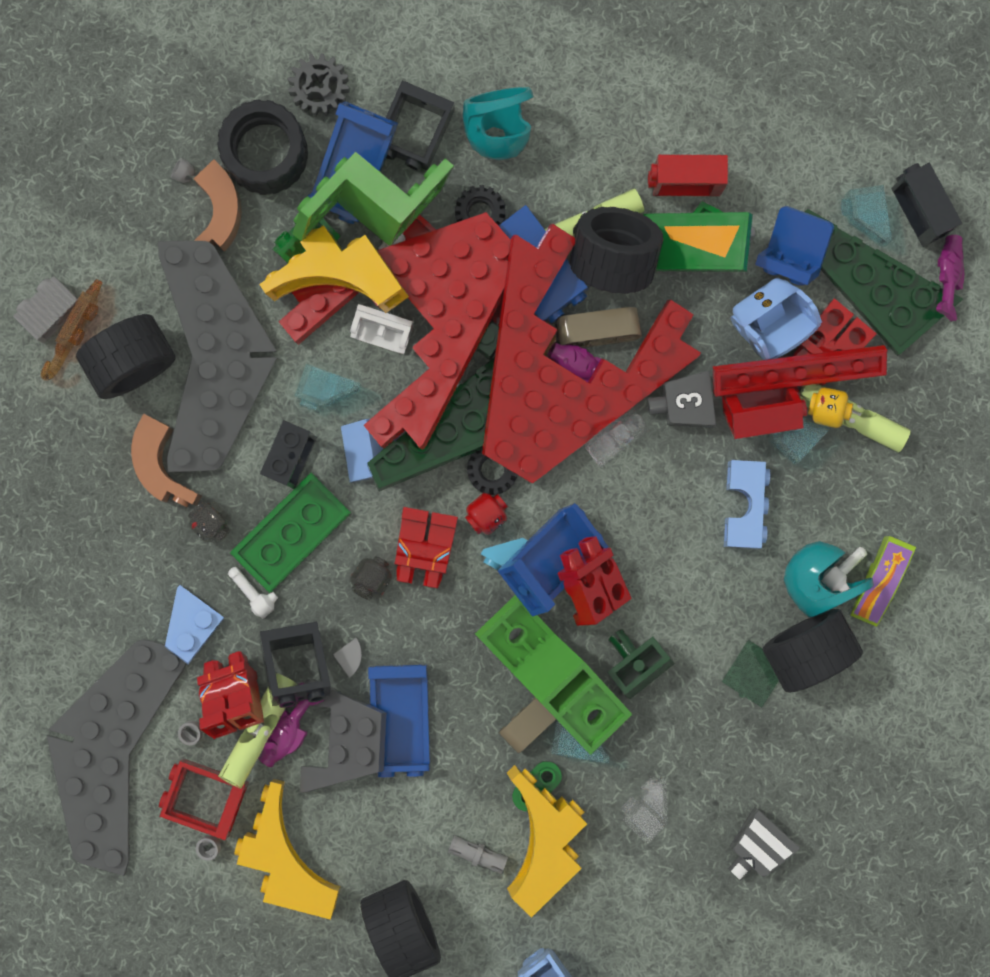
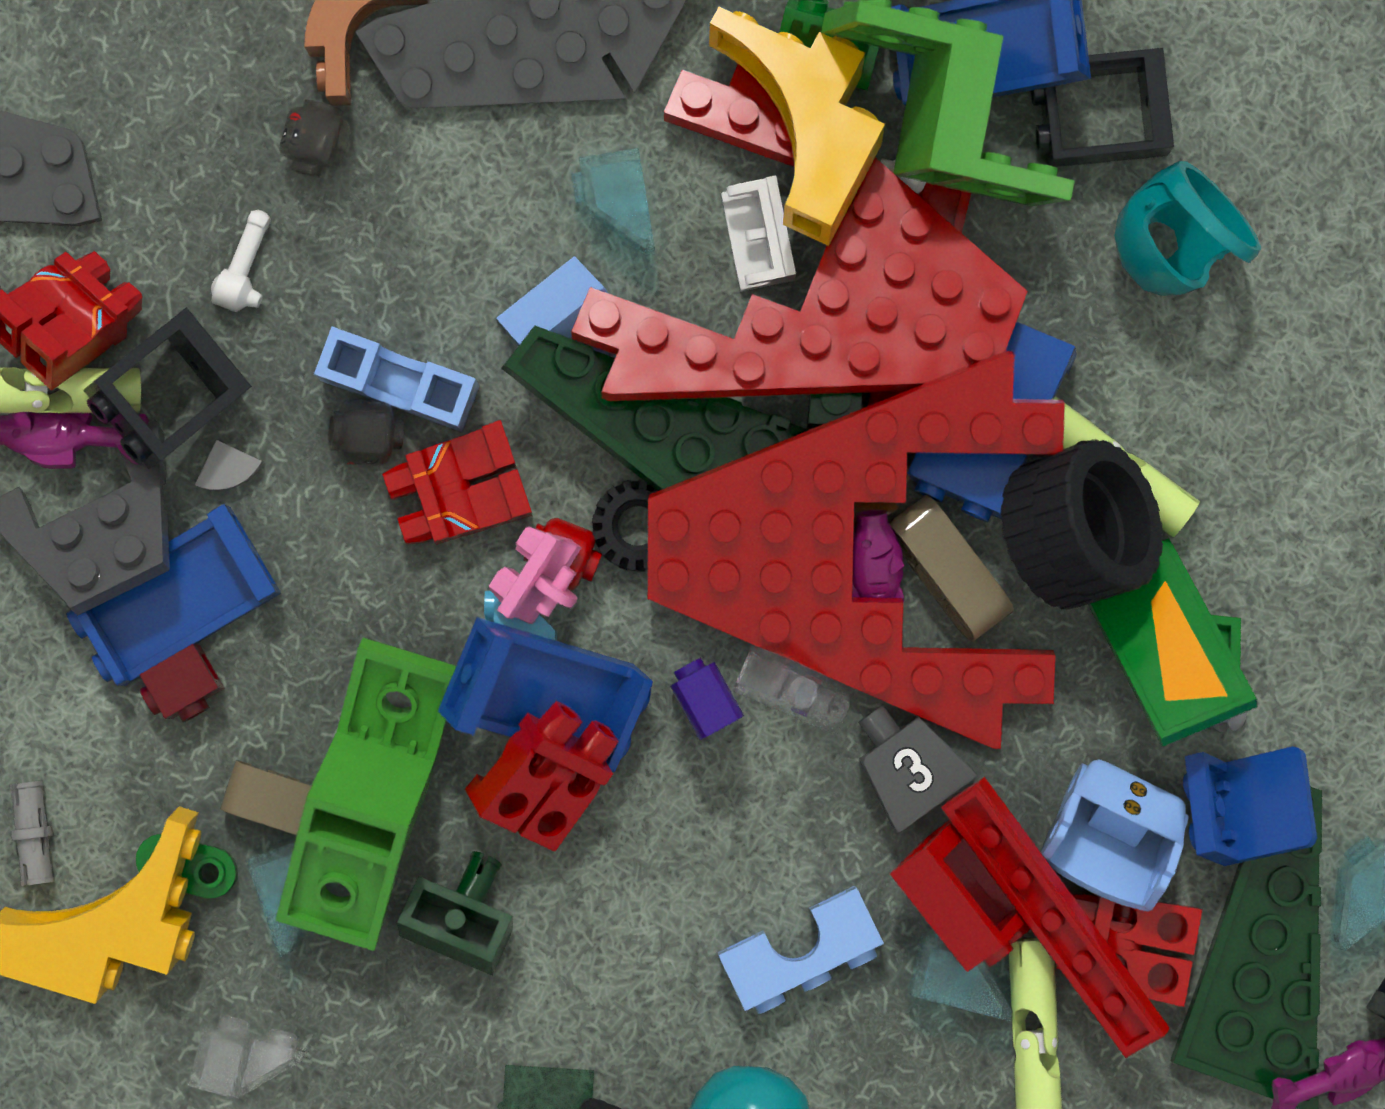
camera: 60 degrees right, 0 degrees up
(190, 625) = (141, 197): light blue wing -> none
(285, 452) = (466, 193): black window -> none
(290, 533) = (367, 271): green tile -> none
(358, 544) = (402, 382): none -> light blue arch
(445, 739) = (181, 684): none -> dark red brick
(480, 195) = (1053, 268): black tyre -> none
(496, 528) = (541, 581): none -> bright pink hips
(598, 482) = (705, 698): none -> dark purple brick
(688, 175) = (1266, 574): red window -> none
(830, 407) = (1023, 997): yellow head -> none

